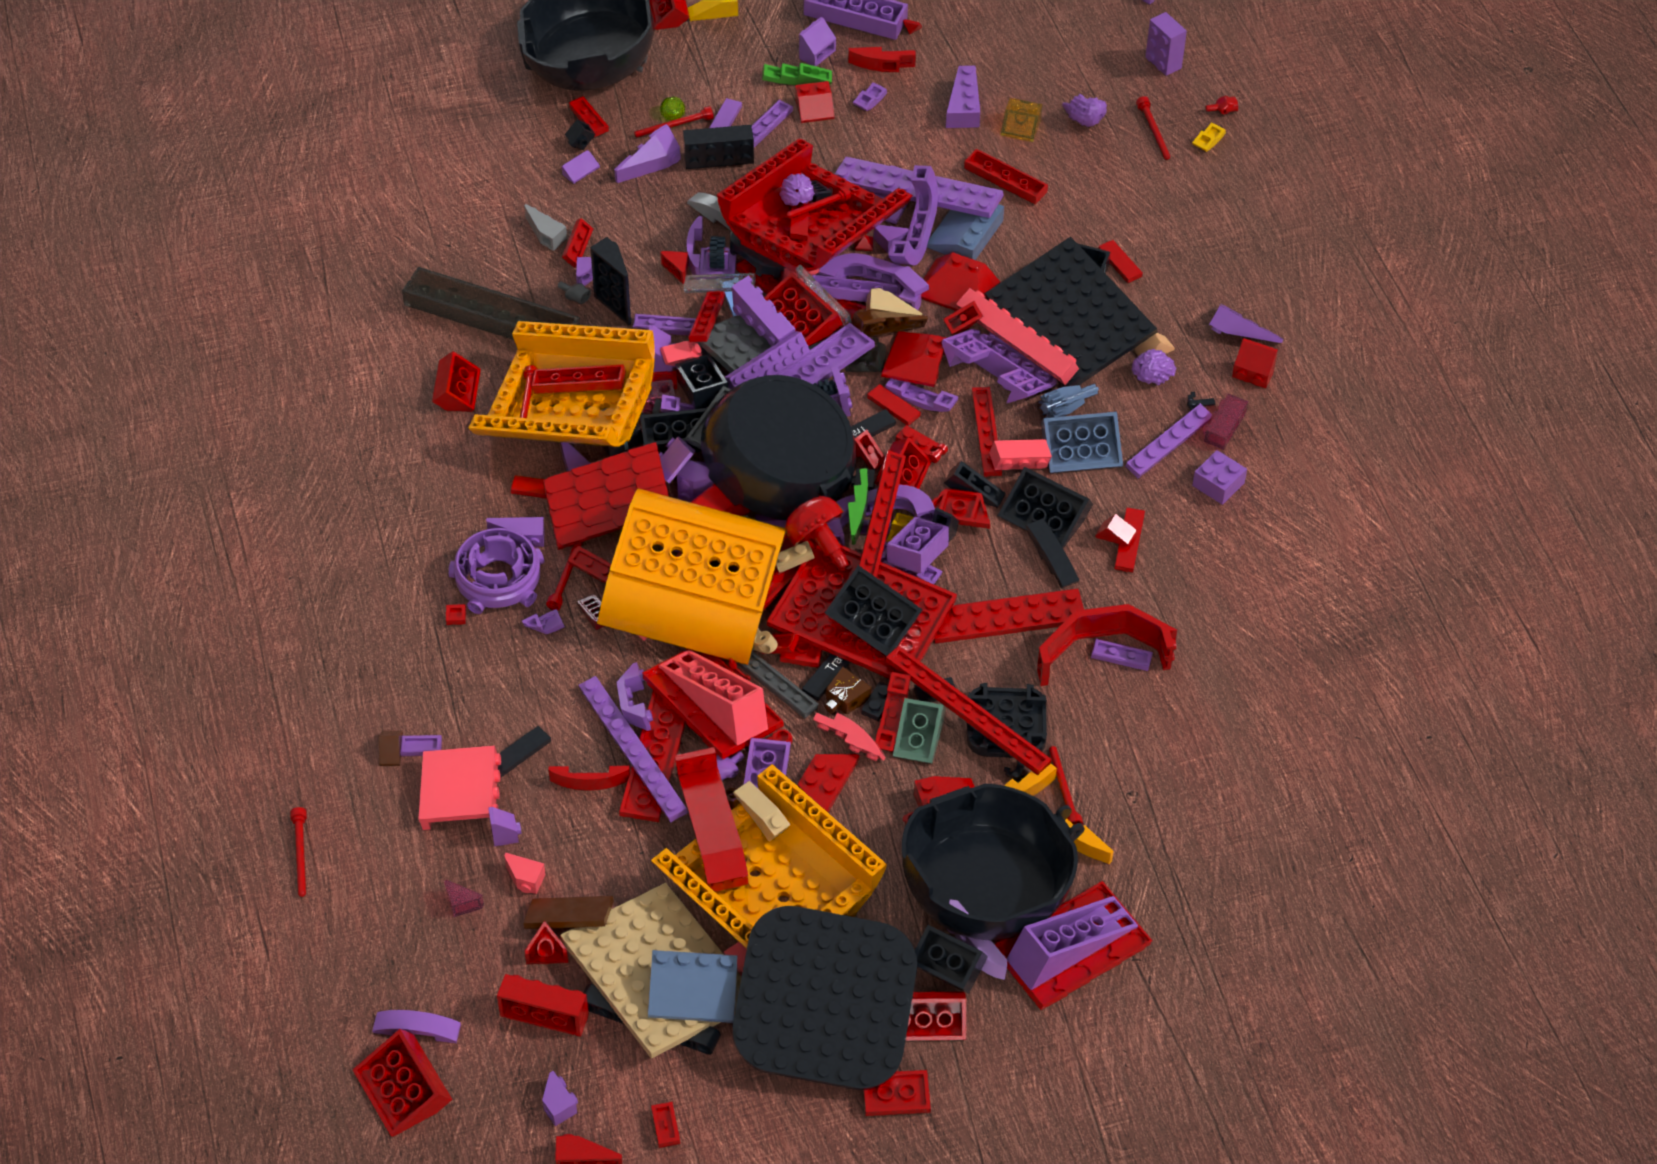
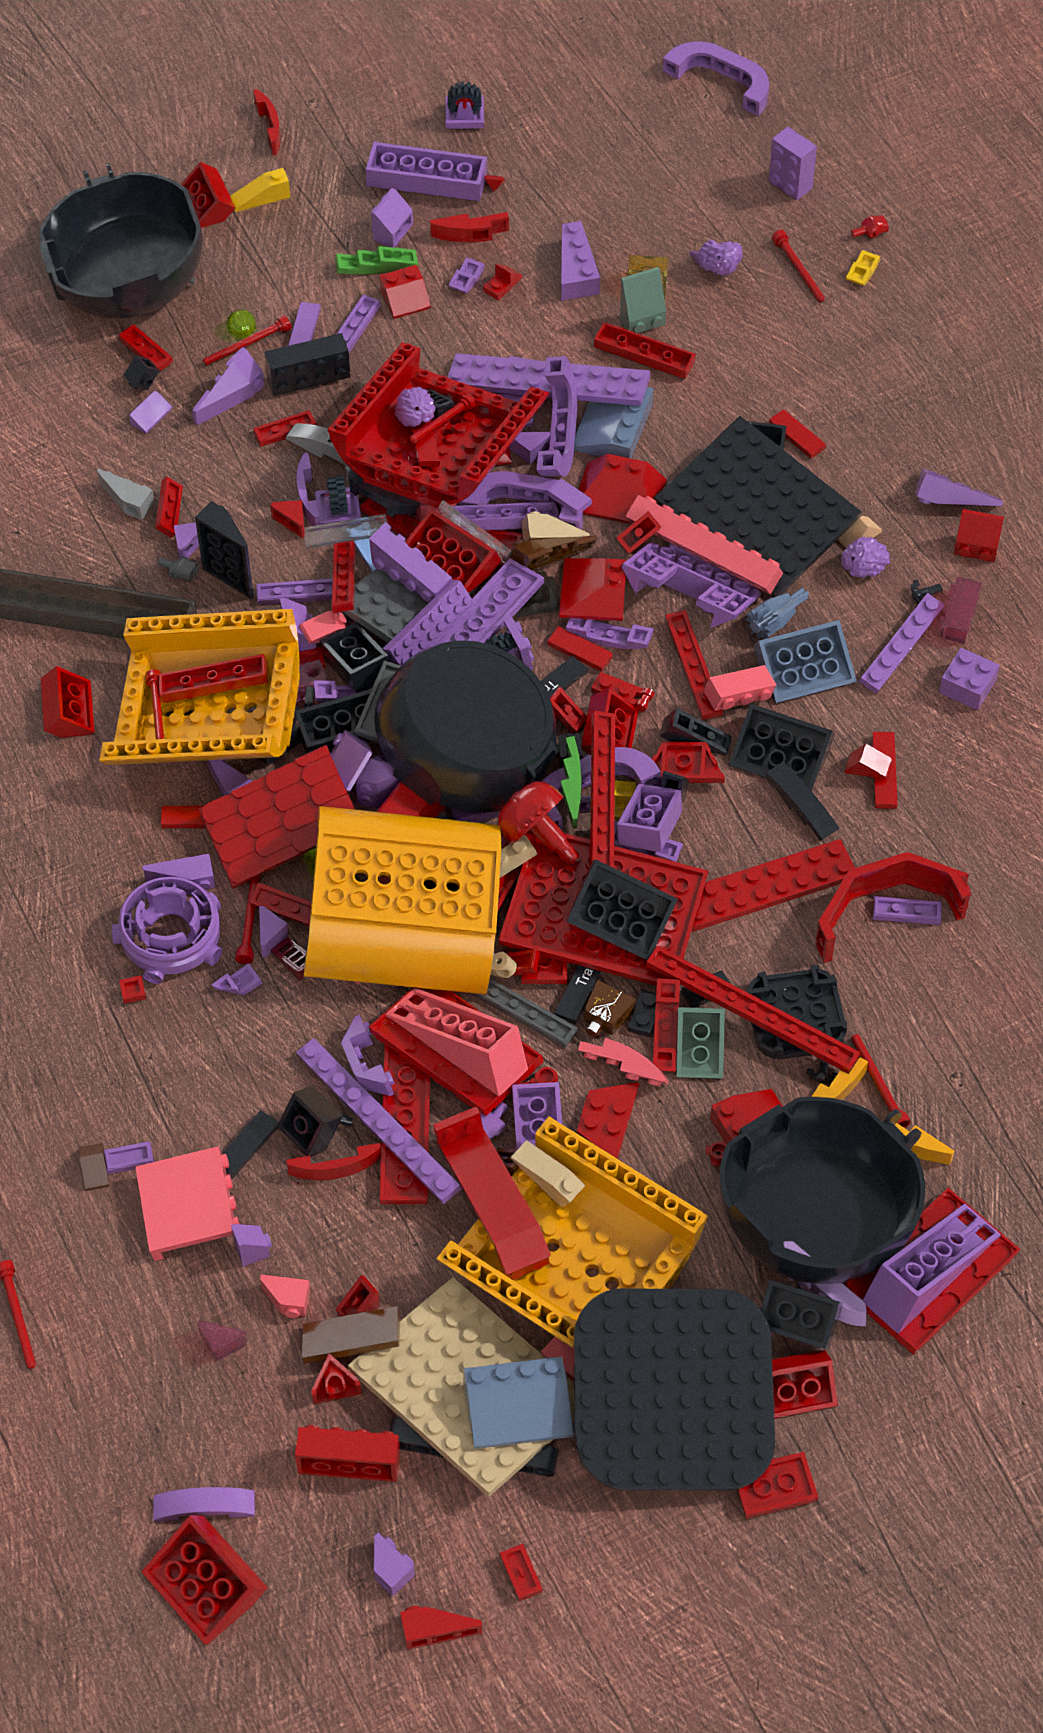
camera: 10 degrees left, 5 degrees up
(576, 739) = (311, 1121): none -> black piece
(581, 586) = (272, 930): none -> medium lavender slope
(583, 885) = (359, 1299): none -> red slope
(680, 196) = (279, 429): none -> red tile
(733, 665) = (471, 1000): red piece -> none
(900, 105) = (502, 281): none -> red slope
(1011, 135) = (642, 301): none -> sand green slope

